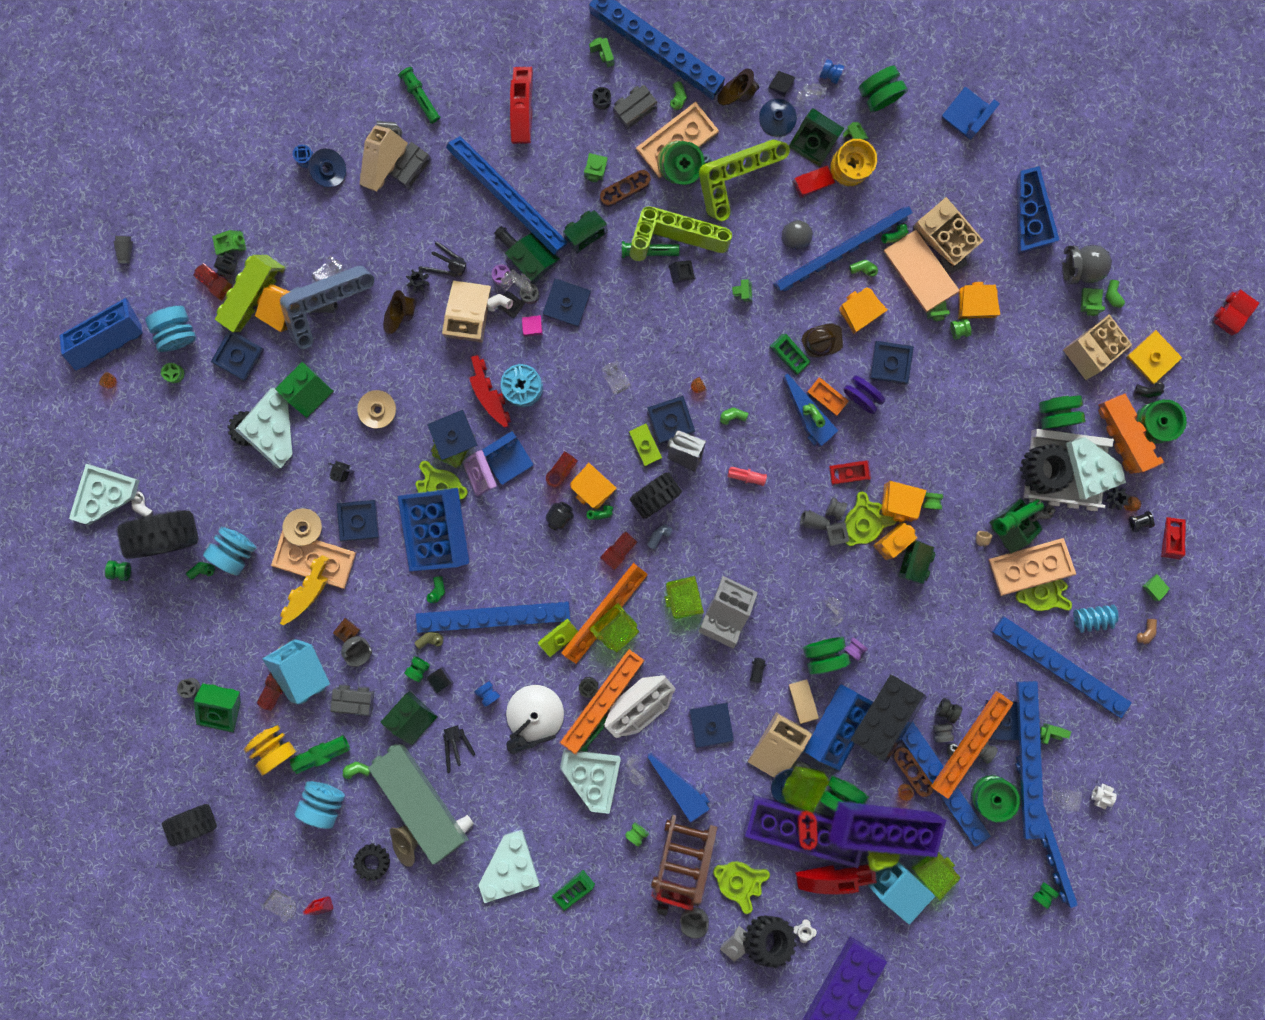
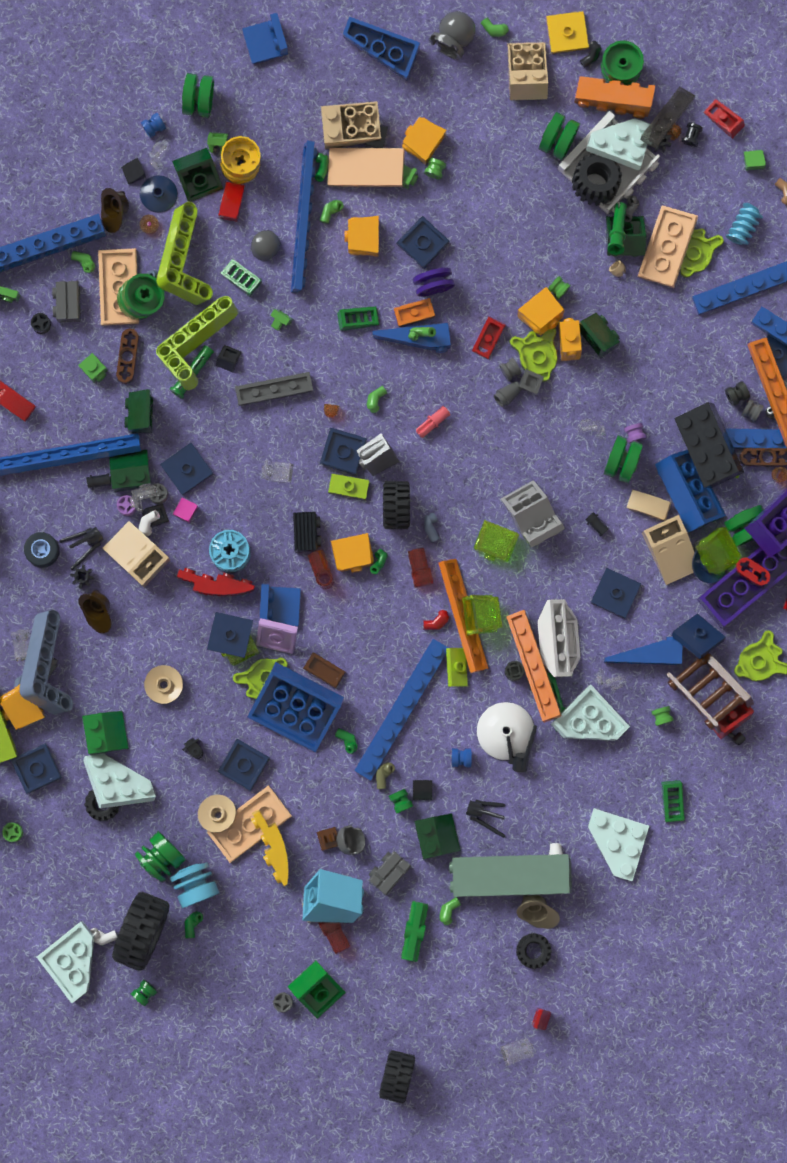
camera: 55 degrees left, 5 degrees down
(233, 506) = (159, 857): none -> green wheel
(269, 750) = (382, 967): yellow wheel -> none
(319, 805) = (456, 957): medium azure wheel -> none
(411, 227) = (36, 545): none -> black wheel
(481, 531) = (324, 670): none -> reddish brown tile
(559, 516) = (357, 596): black head -> none
(582, 436) = (305, 532): none -> black brick
(585, 597) = (438, 623): none -> red arm
(682, 326) = (274, 388): none -> dark grey plate
(694, 923) = (767, 718): dark grey hair -> none
(722, 819) = (698, 636): none -> dark blue plate
(746, 127) = (149, 224): none -> clear orange tile
(756, 249) = (254, 285): none -> slope
(823, 340) = (365, 284): dark brown piece -> none
(1092, 301) = (487, 50): bright green bracket -> none
(1142, 491) = (667, 117): none -> clear smoke tile

